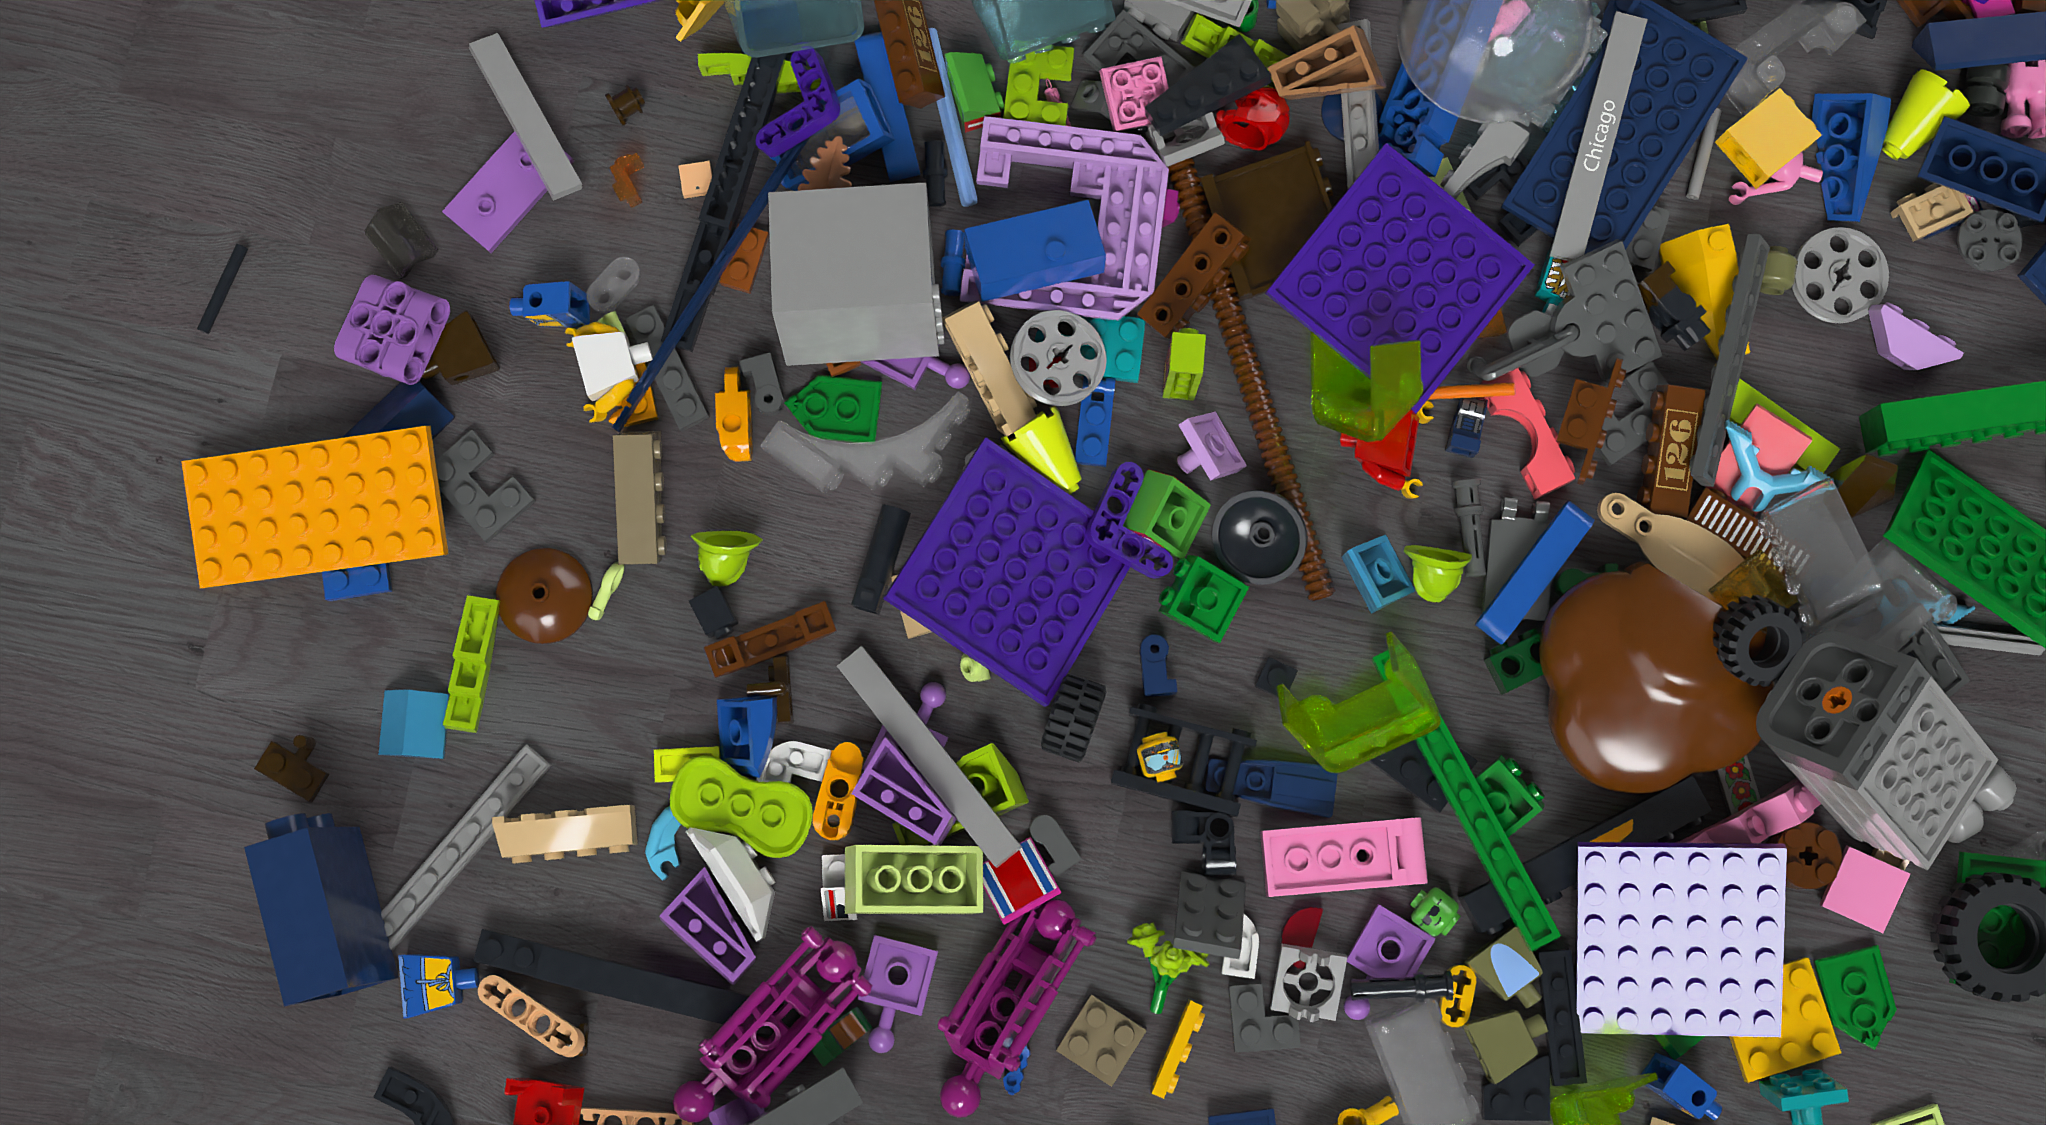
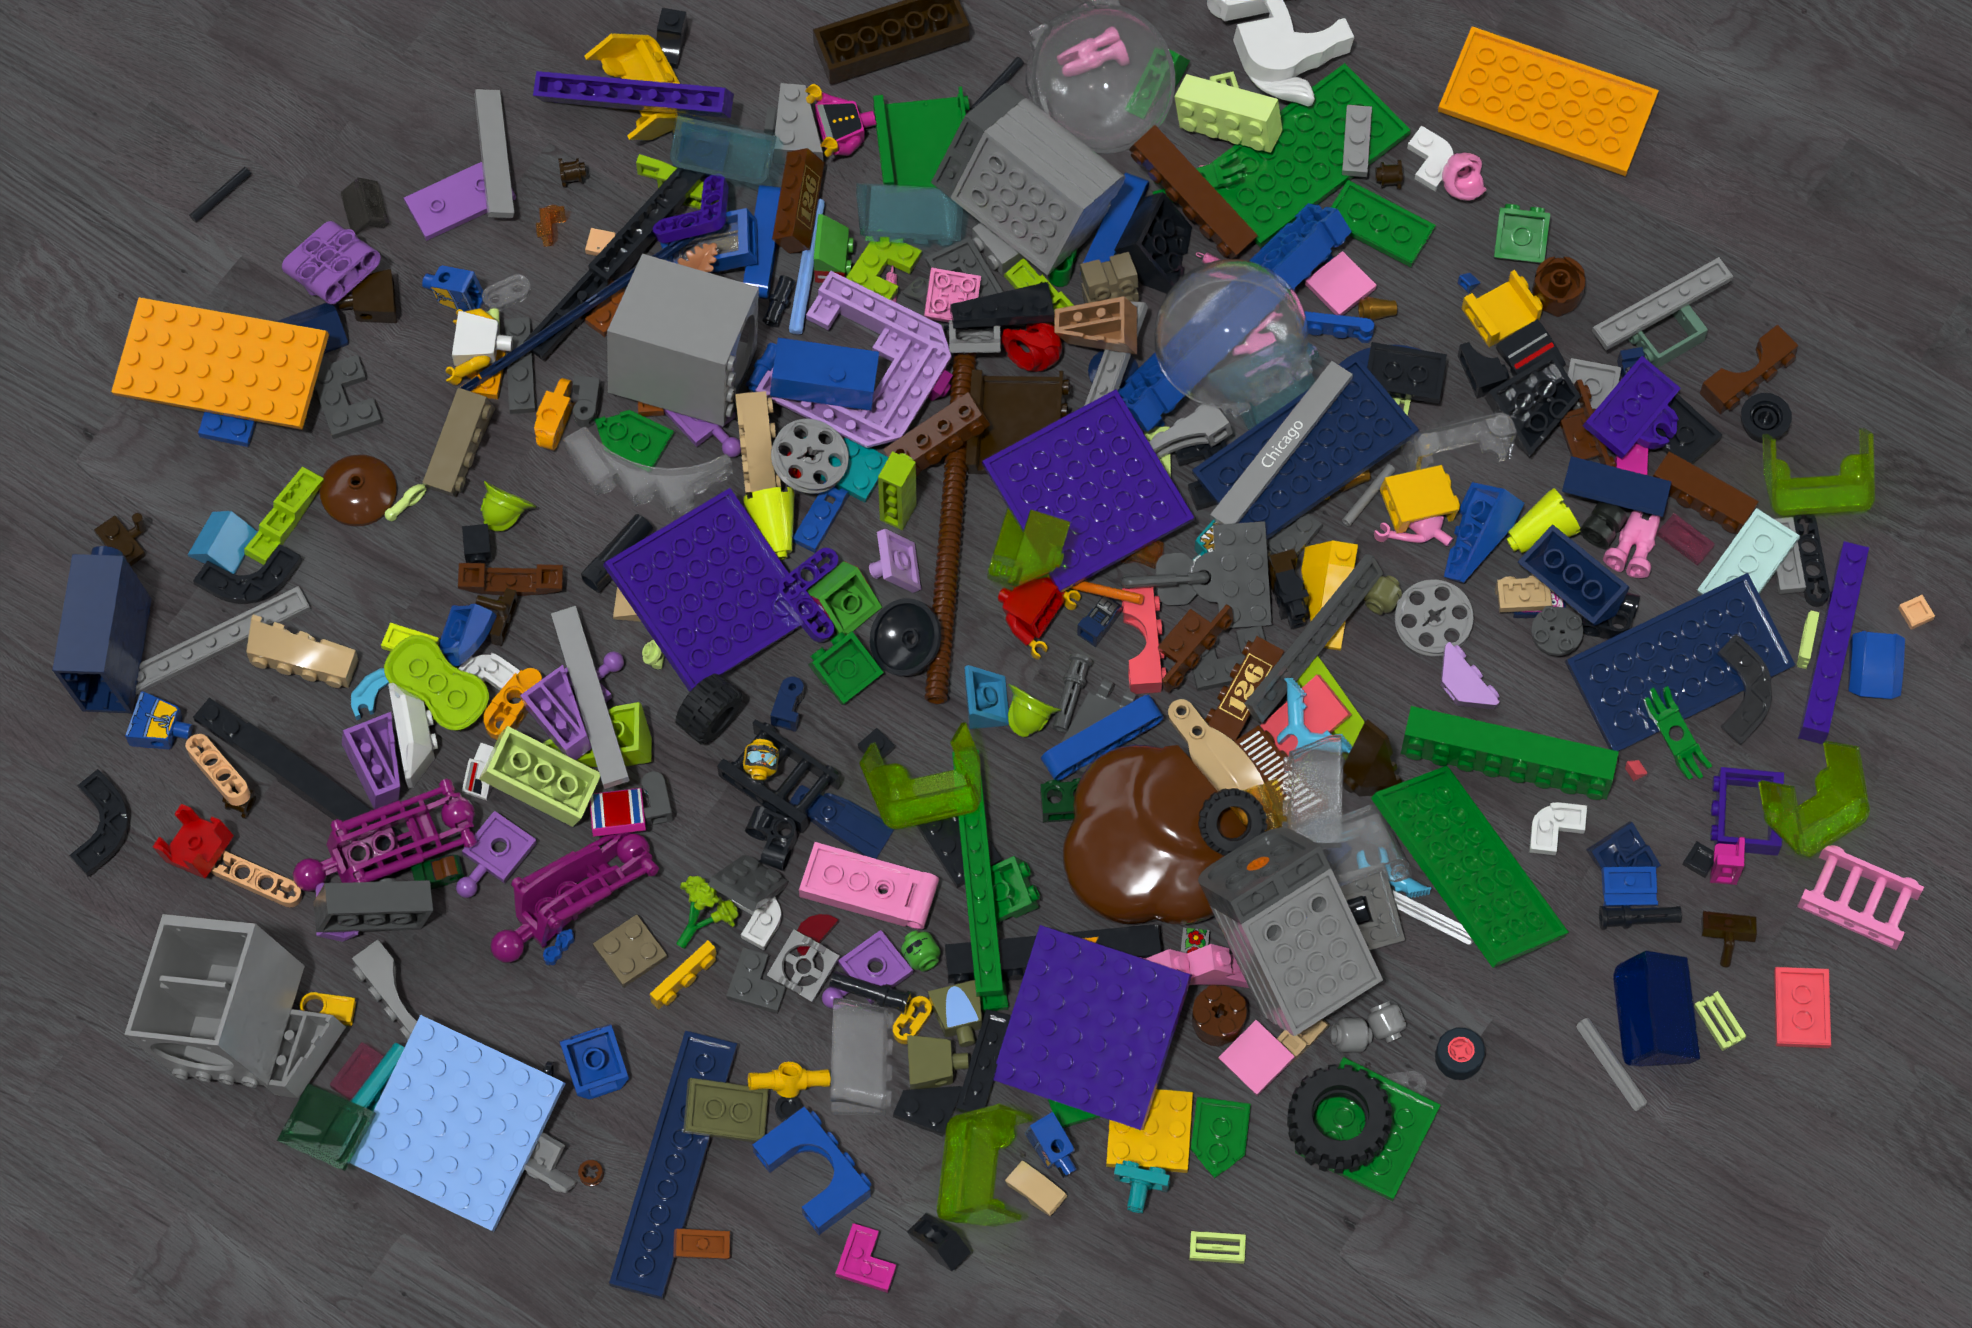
camera: 20 degrees right, 15 degrees down
(473, 766) = (249, 587): none -> black plate

